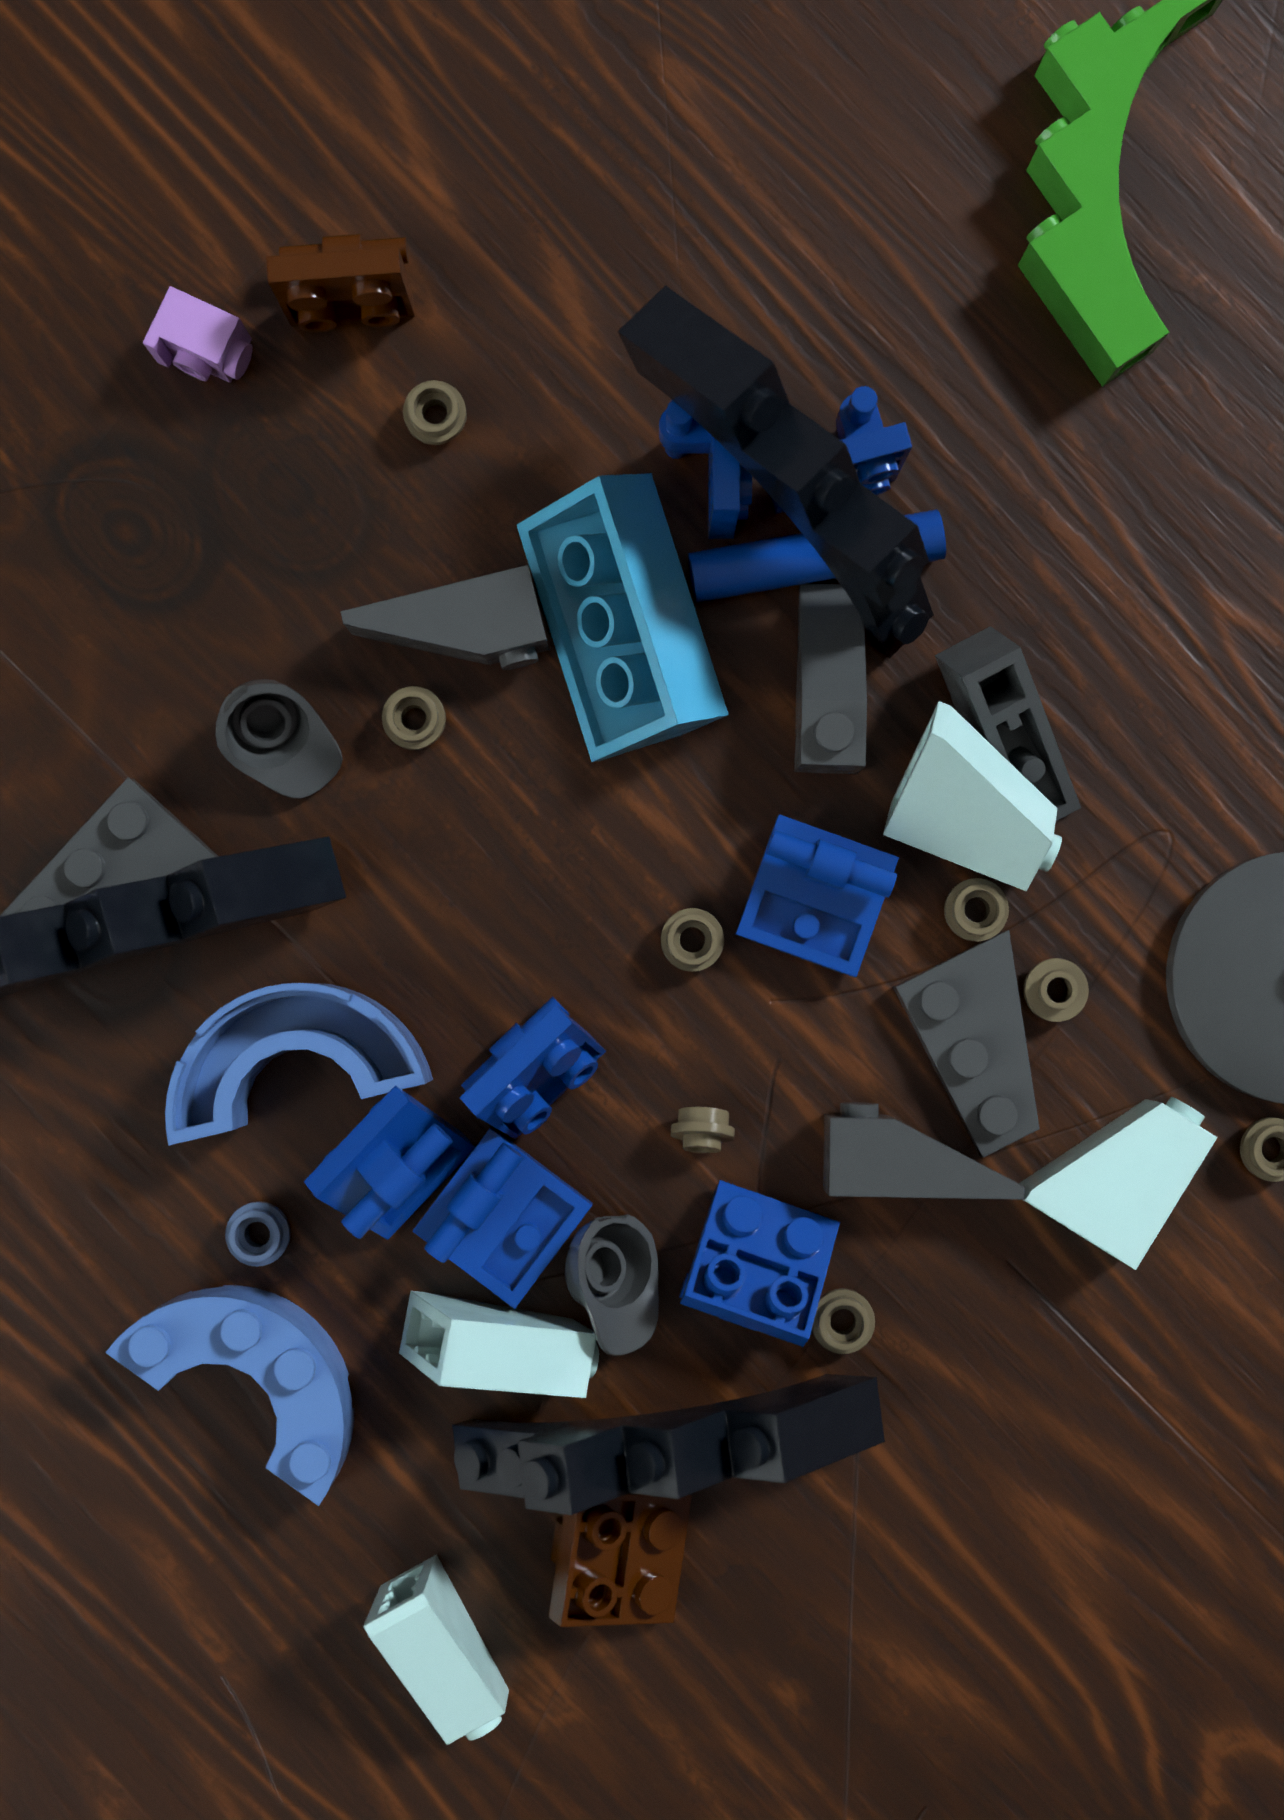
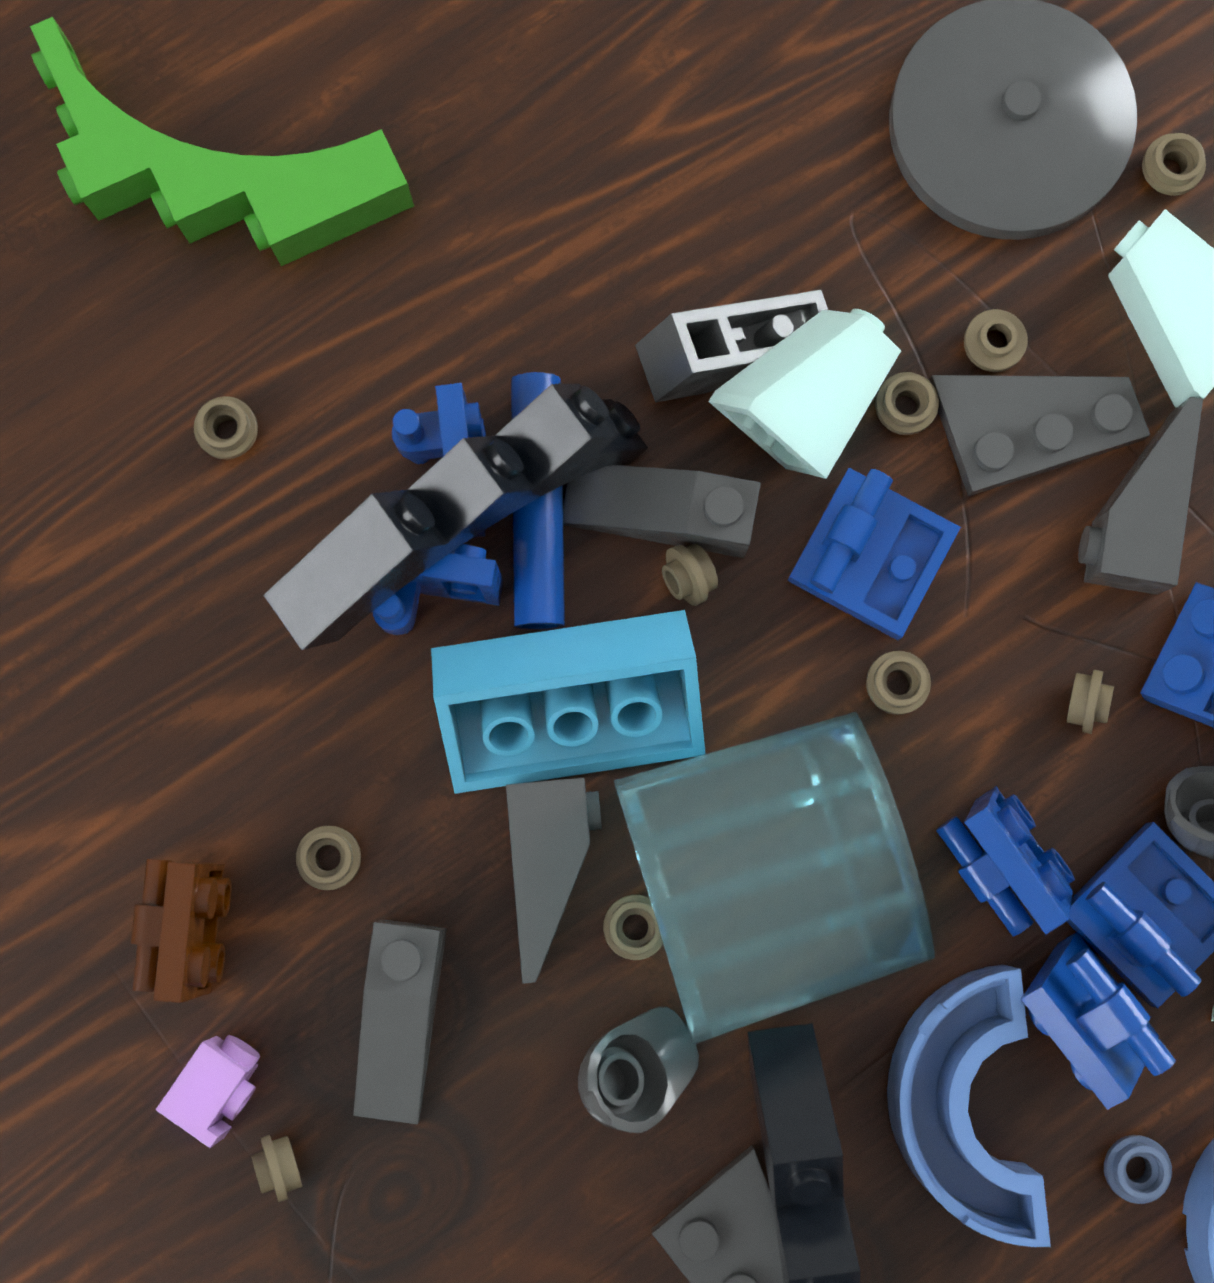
camera: 75 degrees left, 5 degrees down
(136, 413) = (276, 1167): none -> dark tan plate
(294, 503) = (397, 1019): none -> dark grey slope
(481, 834) = (776, 873): none -> clear light blue windscreen
(767, 716) = (689, 573): none -> dark tan plate
(847, 221) = (215, 413): none -> dark tan plate

